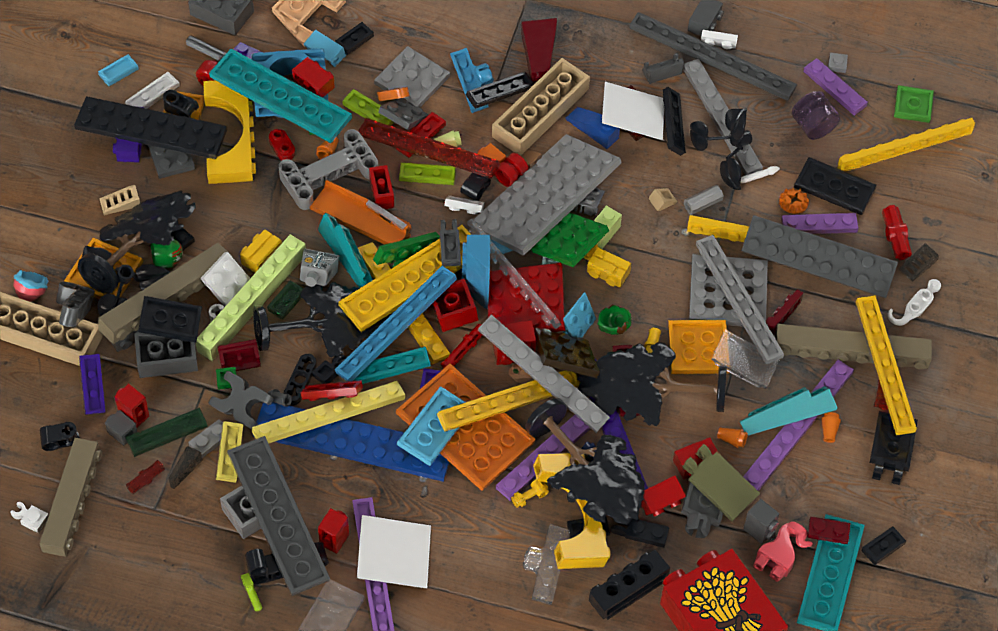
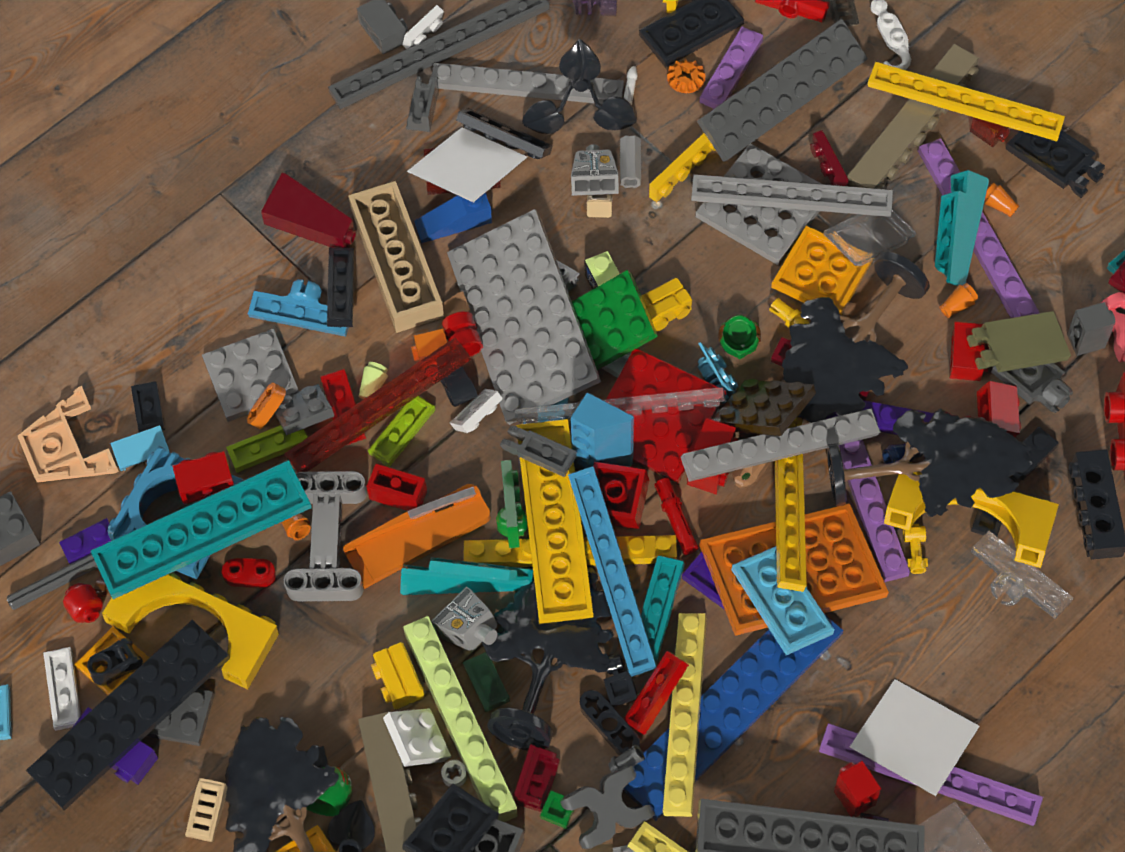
camera: 55 degrees left, 5 degrees up
(678, 181) = (594, 172): none -> light grey torso

